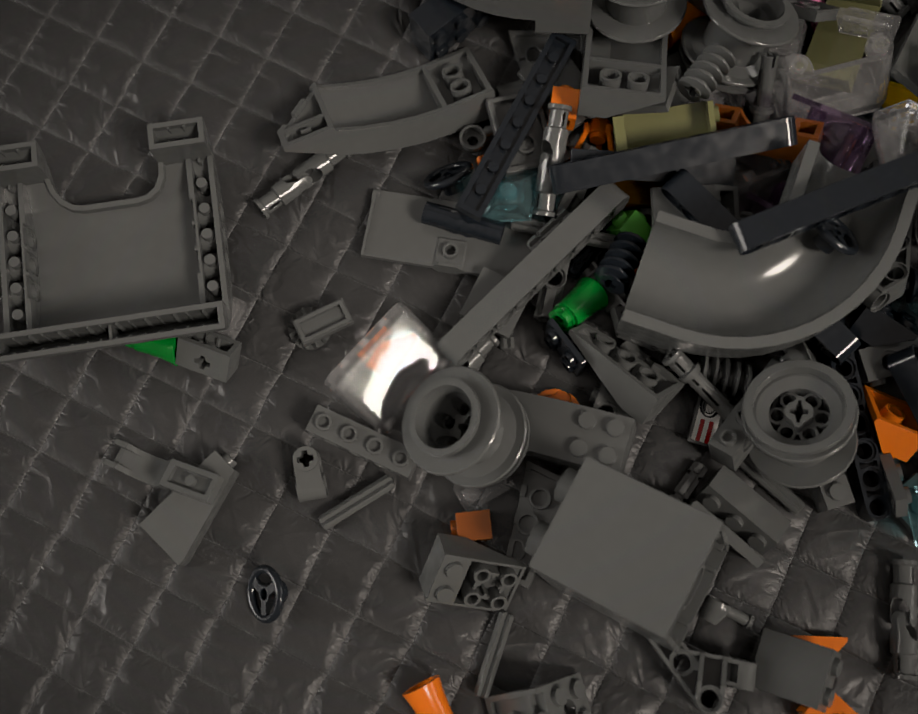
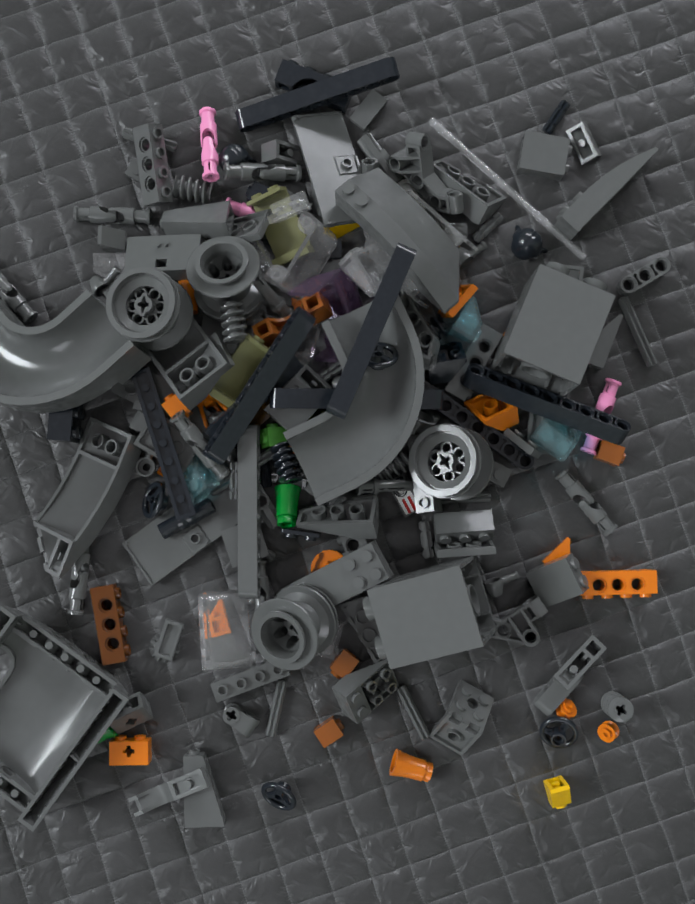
camera: 45 degrees left, 10 degrees up
(155, 387) = (120, 755): none -> orange brick
(282, 236) = (101, 614): none -> reddish brown brick
(386, 581) = (329, 731): none -> dark orange brick

